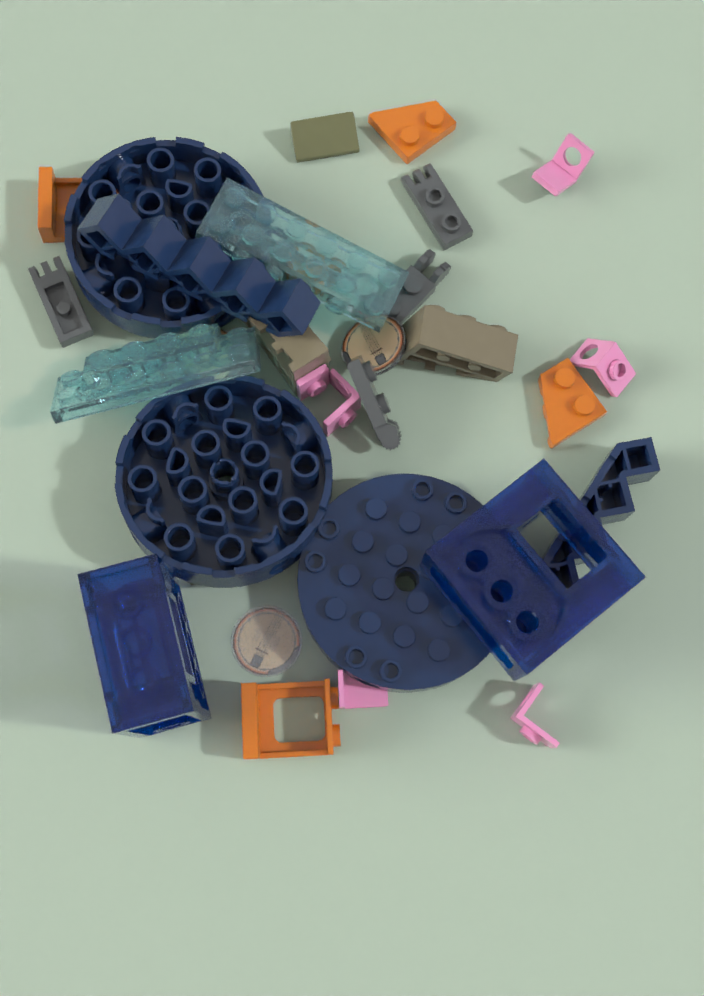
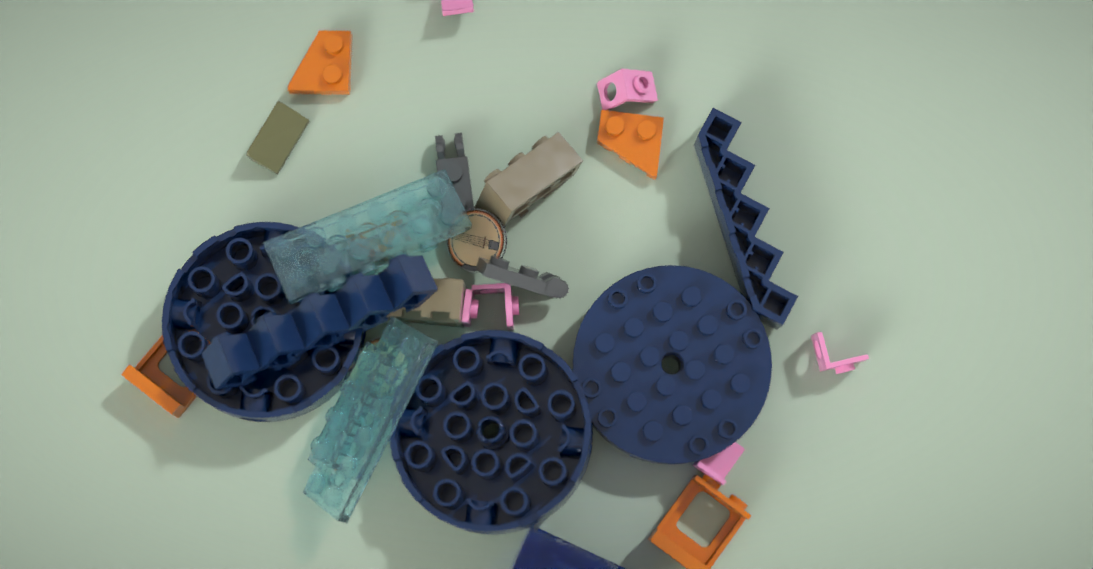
camera: 45 degrees left, 5 degrees up
(61, 303) = (244, 443): dark grey hinge -> none
(266, 641) = (629, 497): clear piece -> none
(437, 207) = (404, 101): dark grey hinge -> none
(520, 575) = (756, 288): clear blue piece -> none

